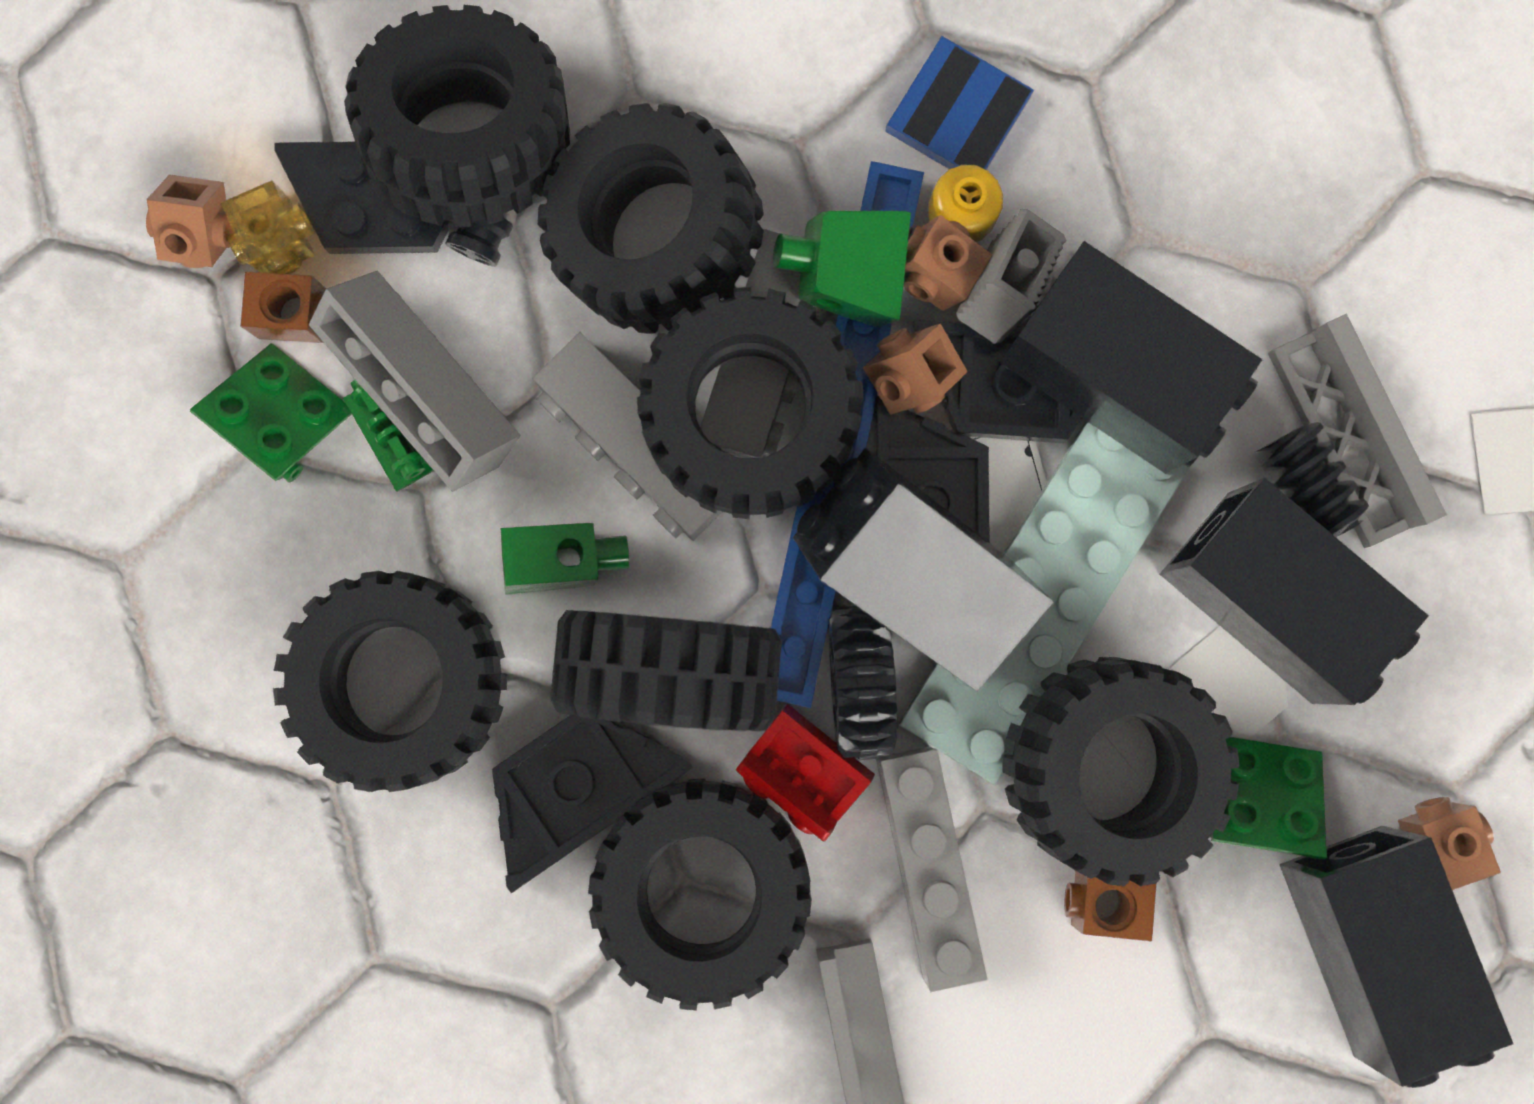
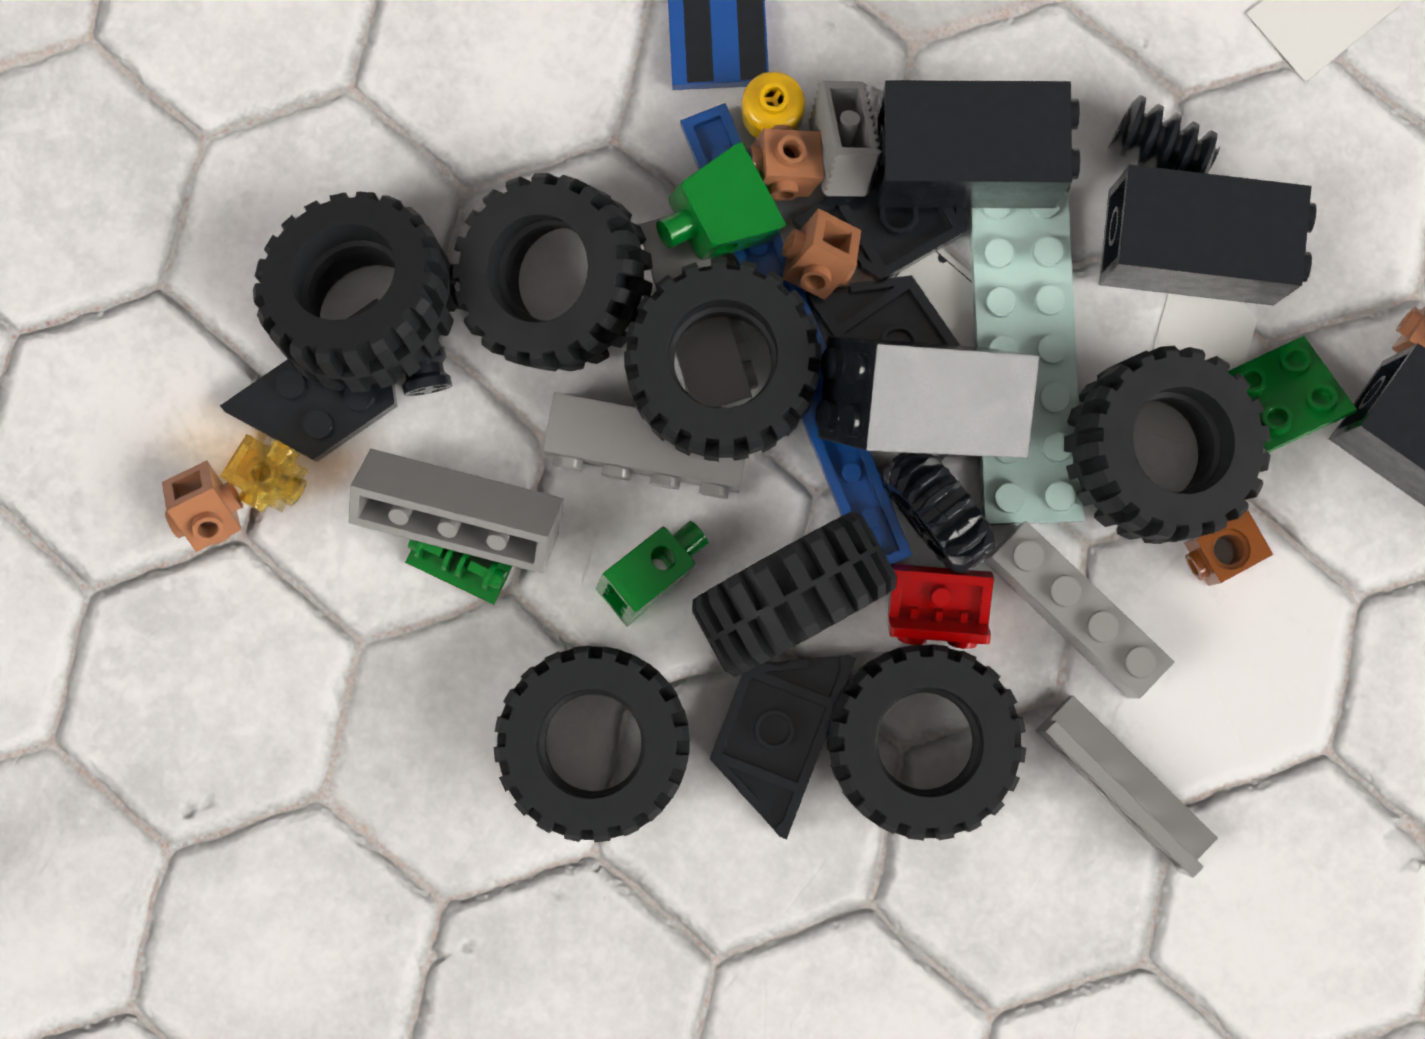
camera: 30 degrees left, 0 degrees up
(264, 299) = (295, 523): dark orange brick -> none
(272, 412) = (361, 607): green hinge -> none
(1372, 420) = (1177, 67): light grey fence -> none

